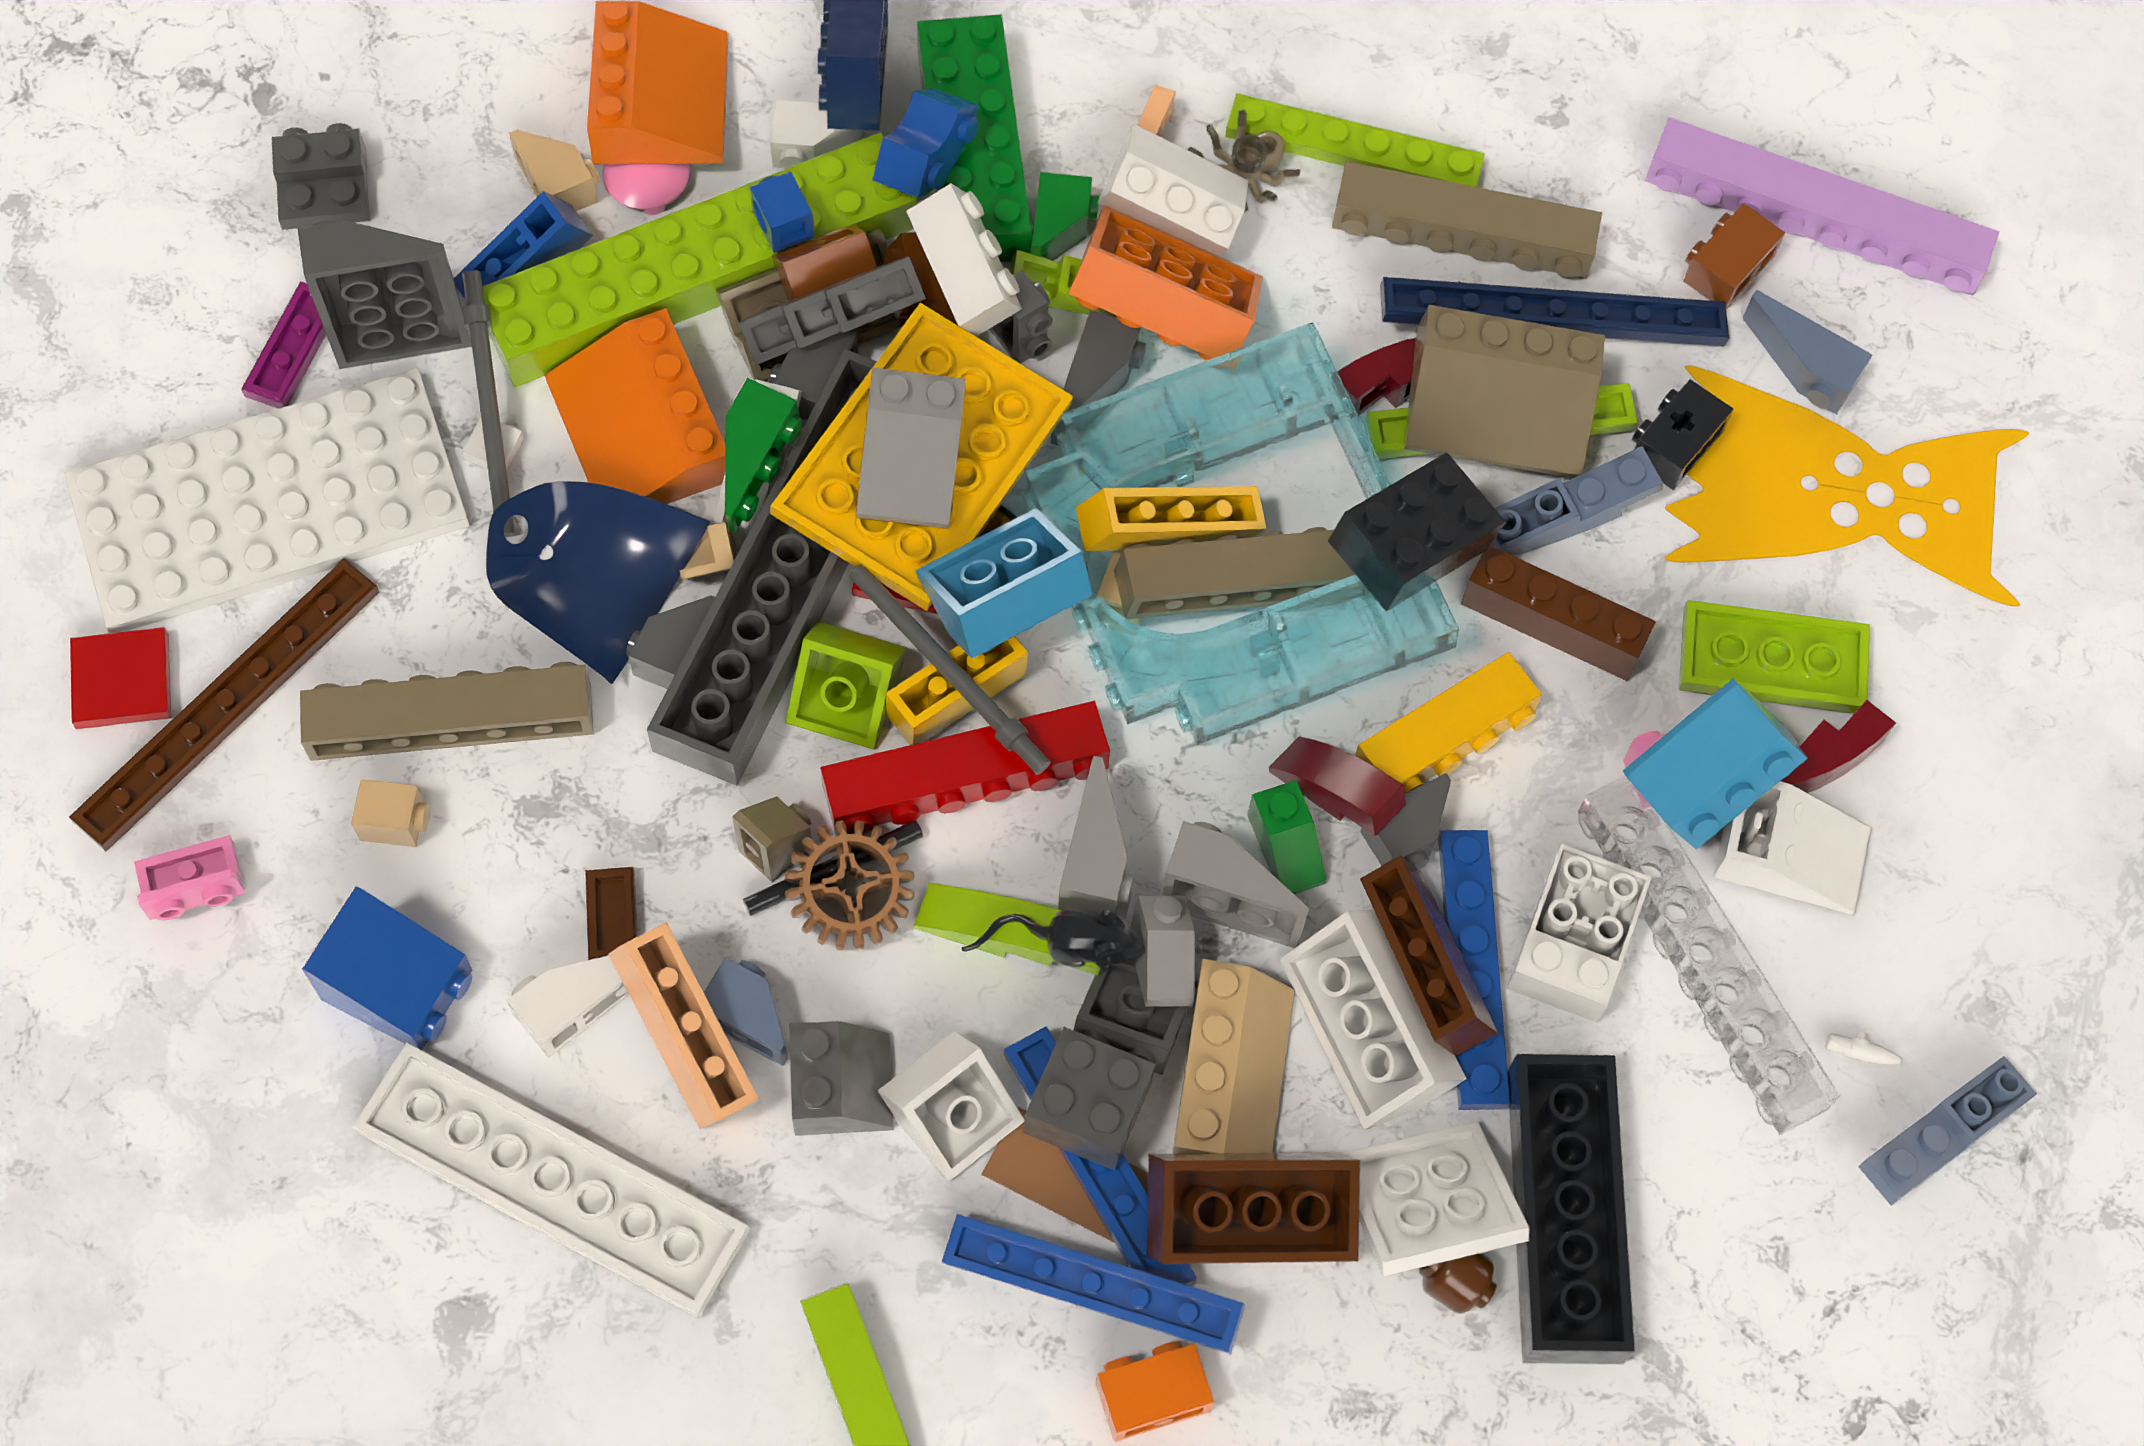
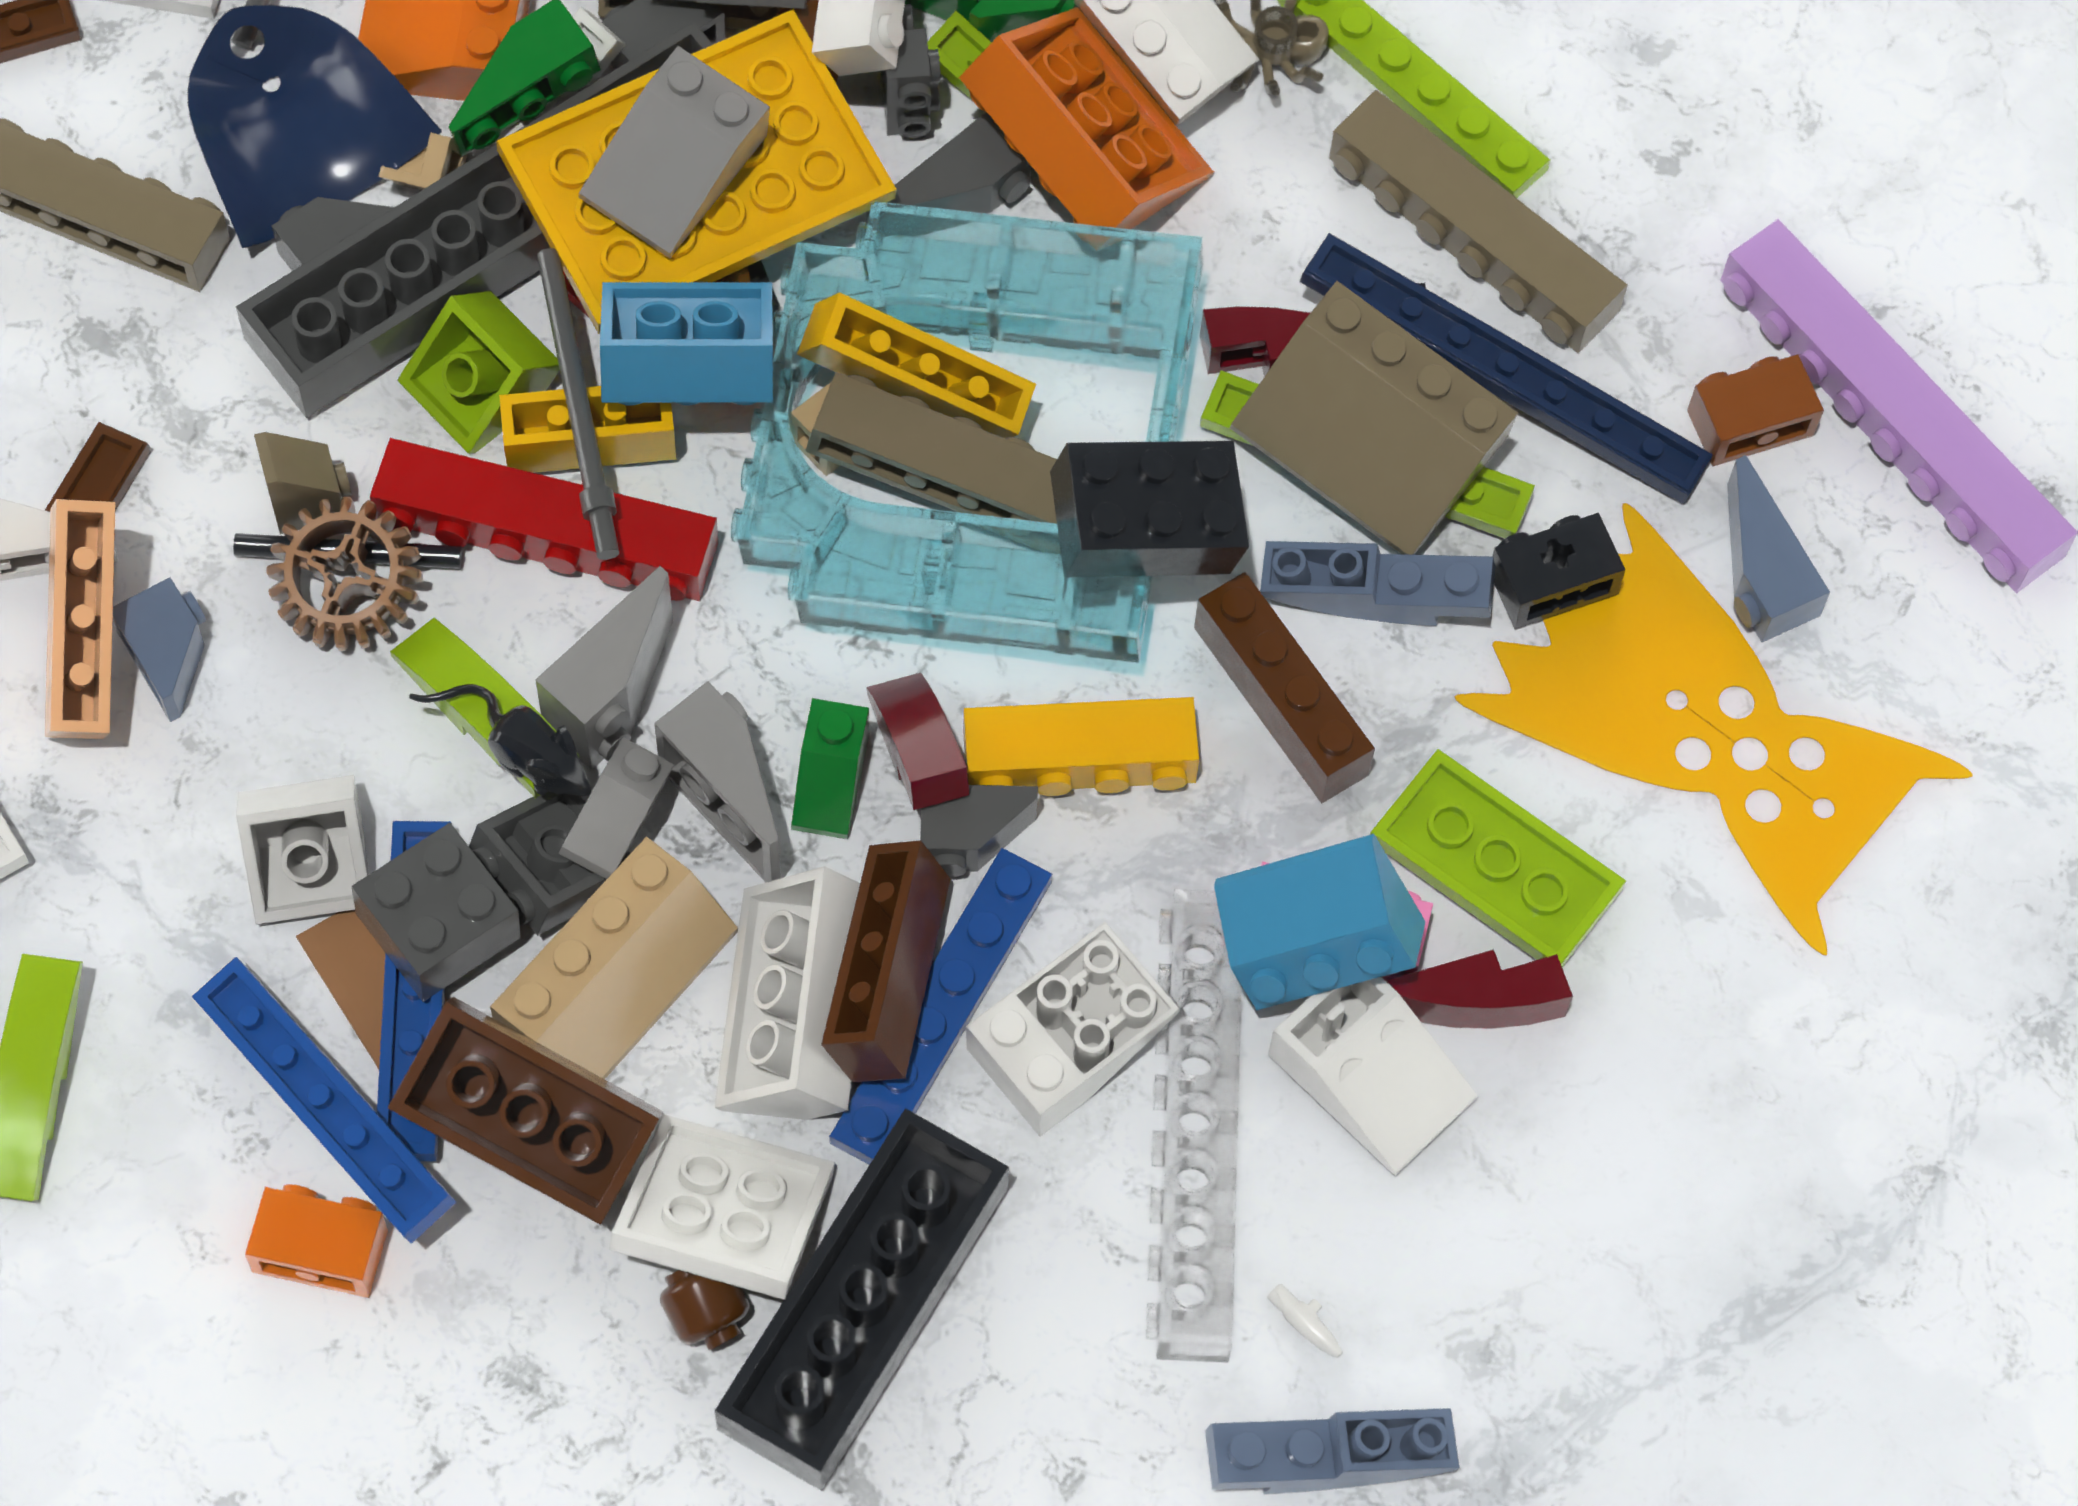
camera: 30 degrees right, 0 degrees up
(838, 1078) = (204, 755): flat silver slope -> none

